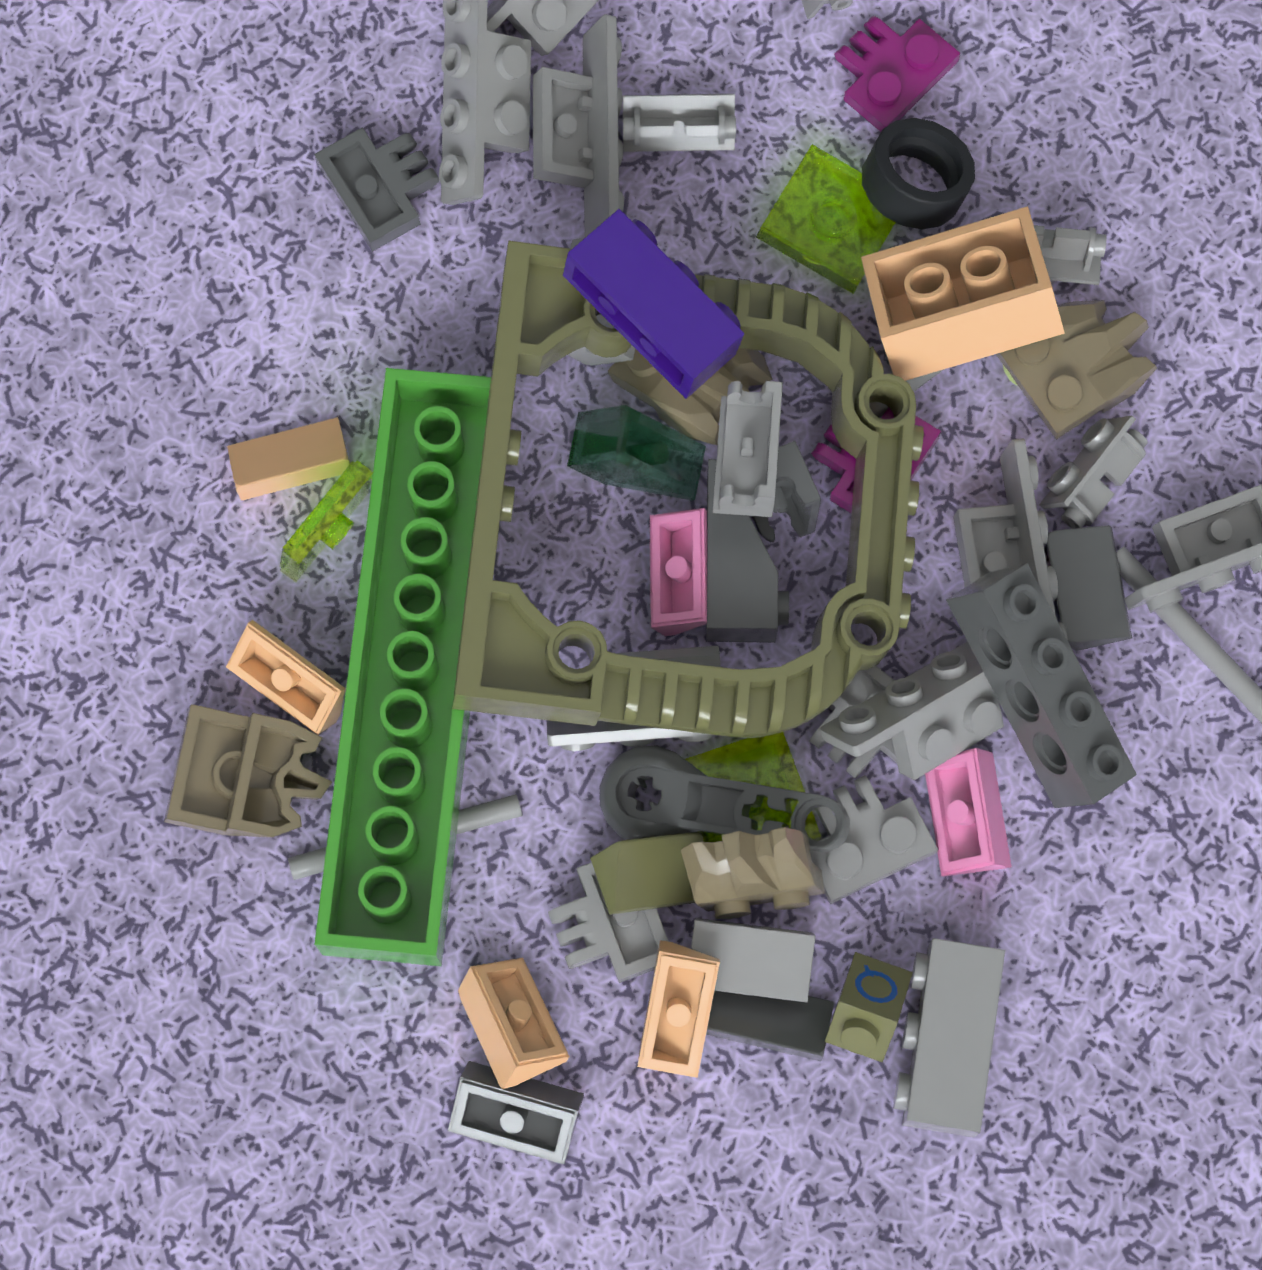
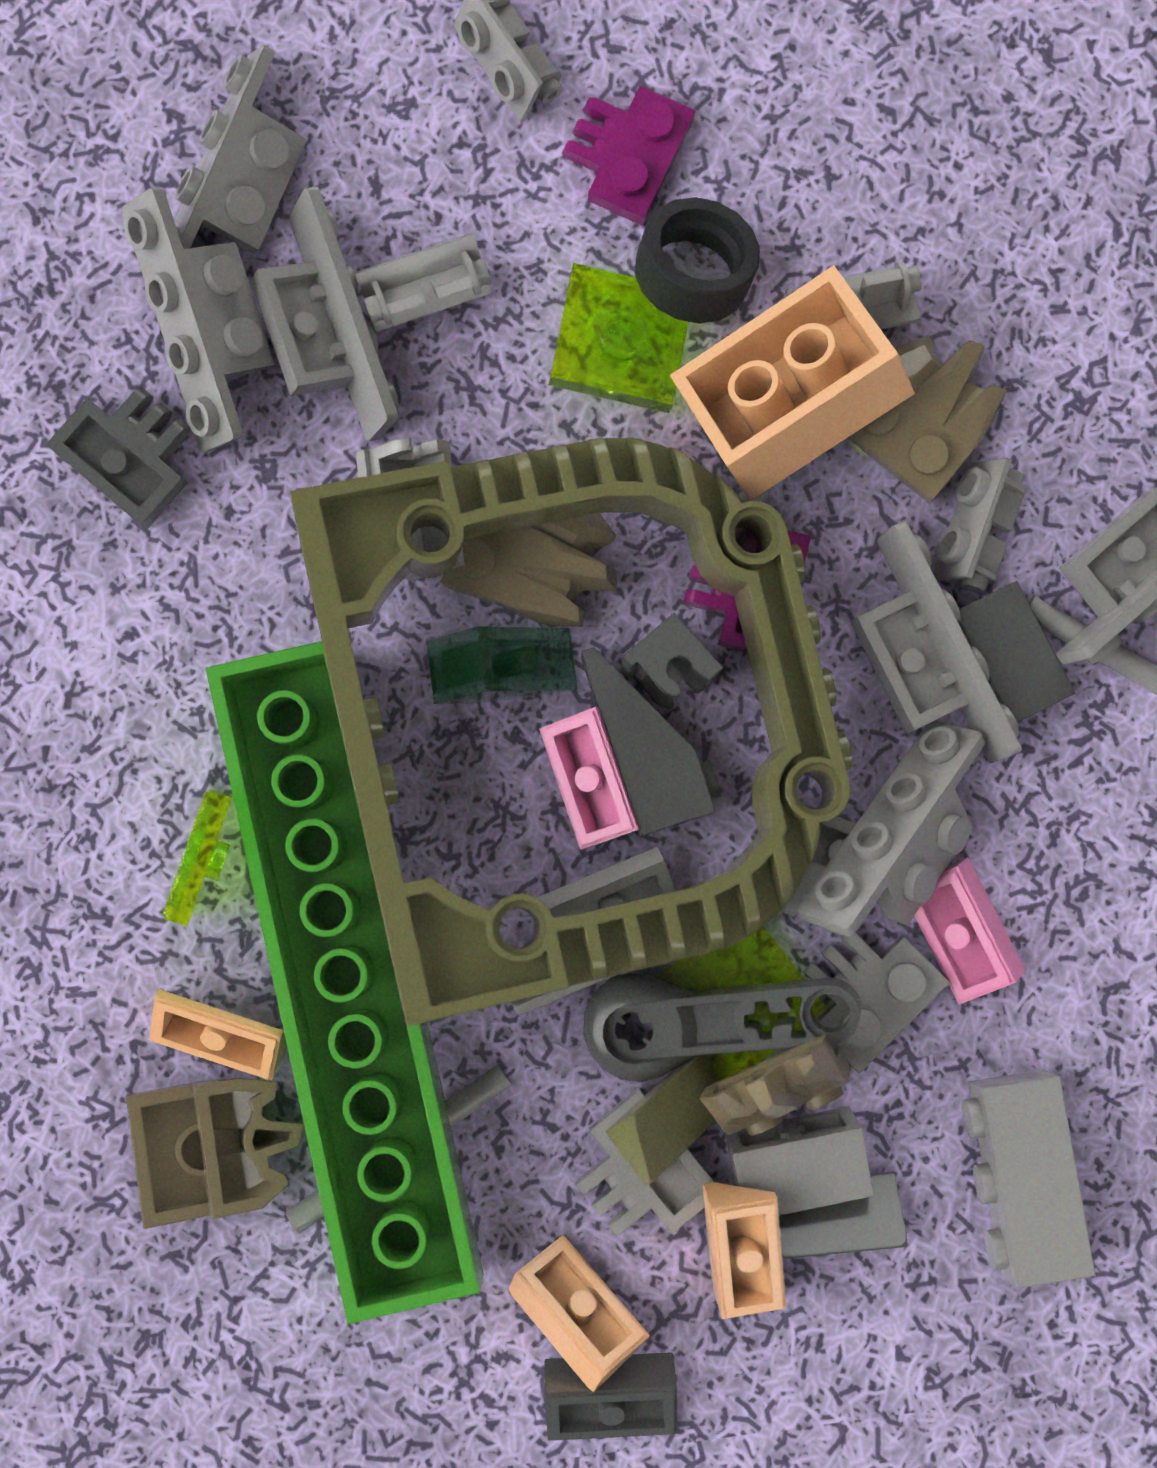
camera: 25 degrees left, 10 degrees up
(288, 459) = (136, 786): light nougat slope -> none
(653, 302) = (472, 511): dark purple brick -> none
(748, 450) = (631, 644): light grey hinge -> none
(869, 1007) = (938, 1180): olive brick -> none
(1041, 687) = (1011, 787): dark grey brick -> none

